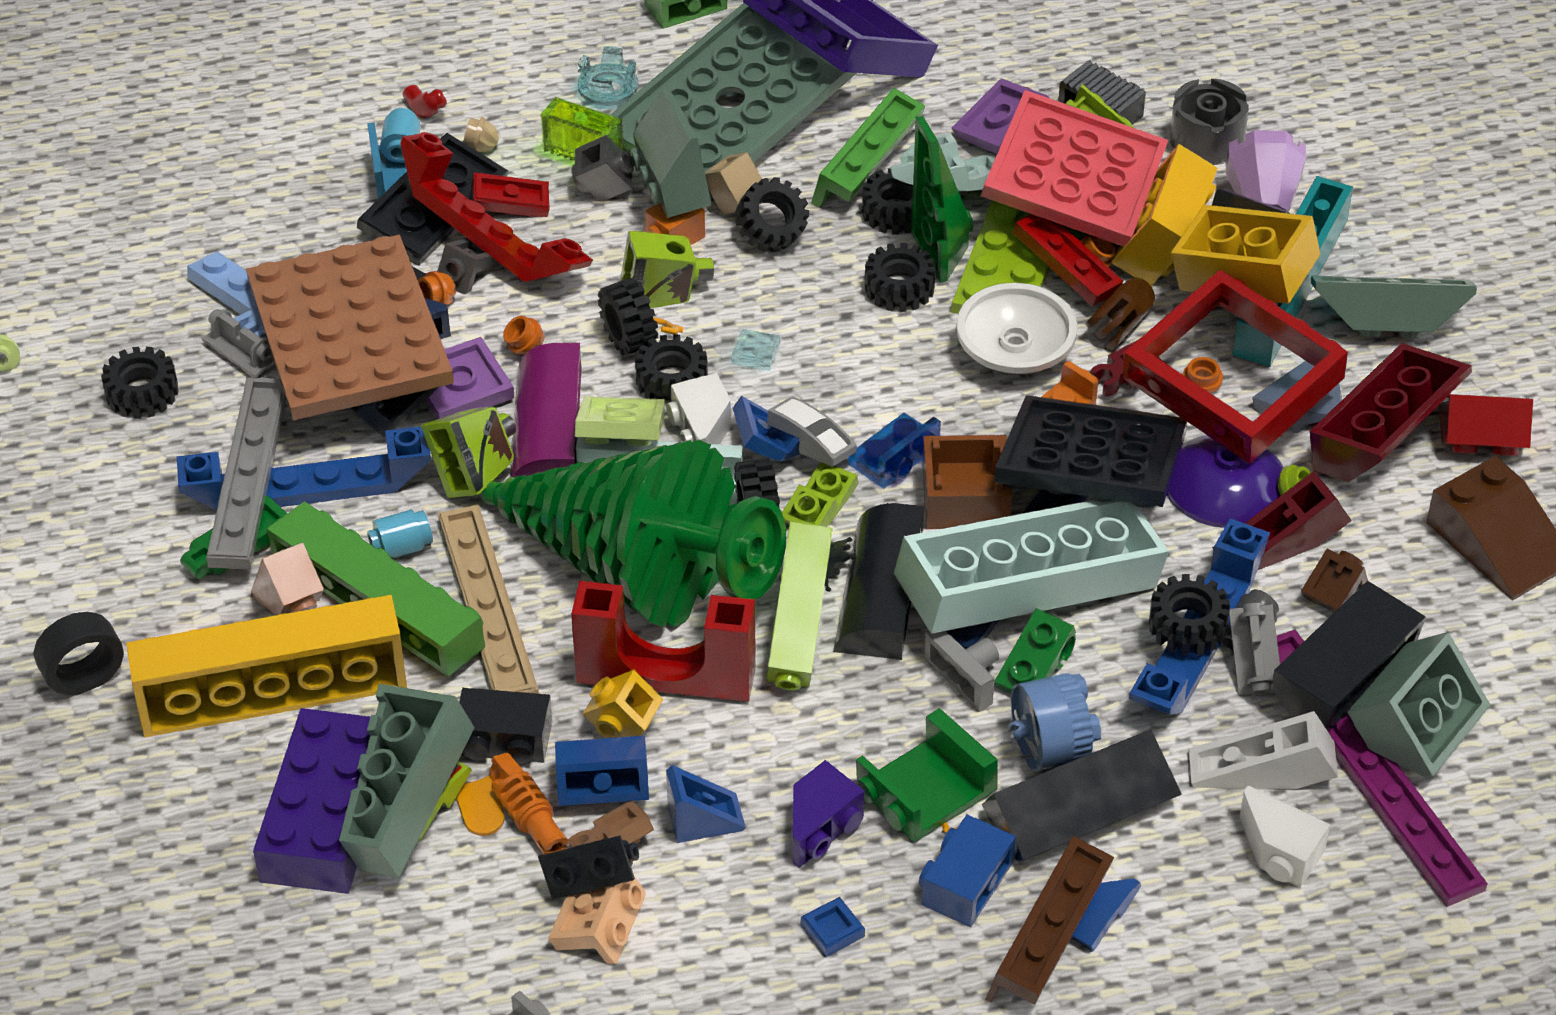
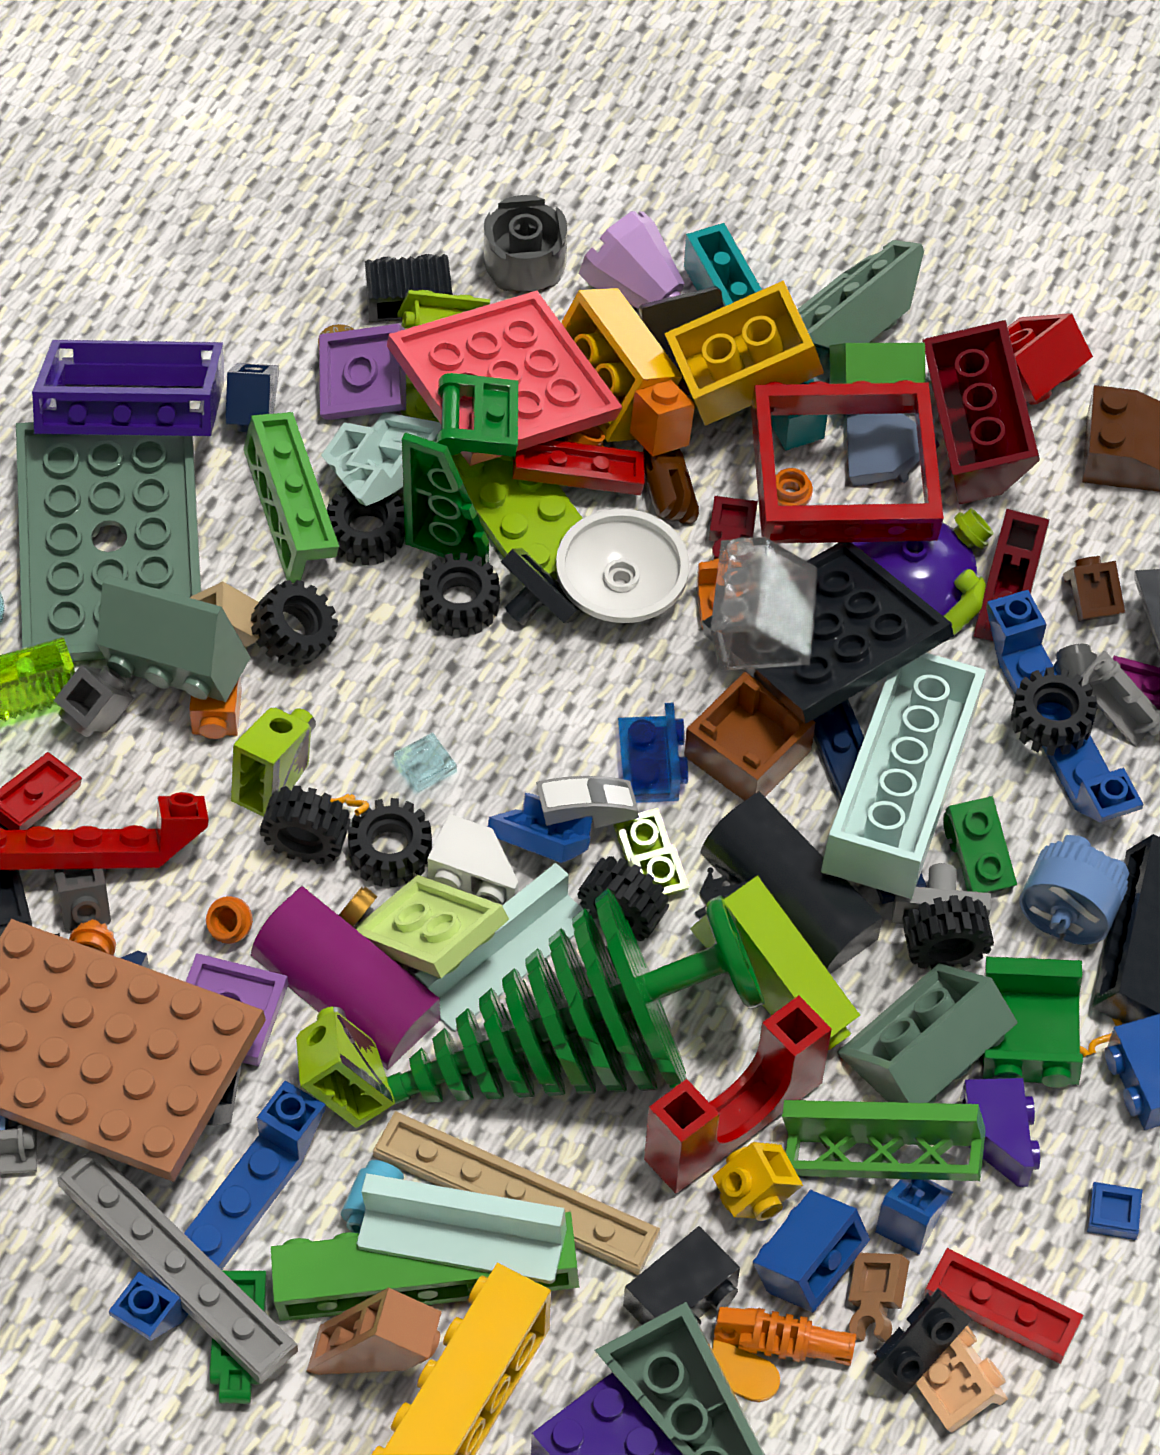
camera: 50 degrees left, 10 degrees up
(407, 571) = (461, 1228): none -> light aqua panel
(601, 384) = (358, 906): none -> pearl gold tile
(681, 909) = (1006, 1305): none -> red plate
(740, 746) = (886, 1124): none -> bright green fence
(843, 729) = (930, 1035): none -> sand green slope
(923, 83) = (250, 392): none -> dark blue slope
(935, 676) = (948, 932): none -> black tyre
(951, 293) = (538, 590): none -> black tile
(1018, 172) = (493, 414): none -> green plate
(1060, 398) = (762, 606): none -> clear slope
(1149, 260) = (662, 418): none -> orange brick
(1214, 525) = (970, 601): none -> lime arm
(1363, 342) = (877, 362): none -> bright green brick

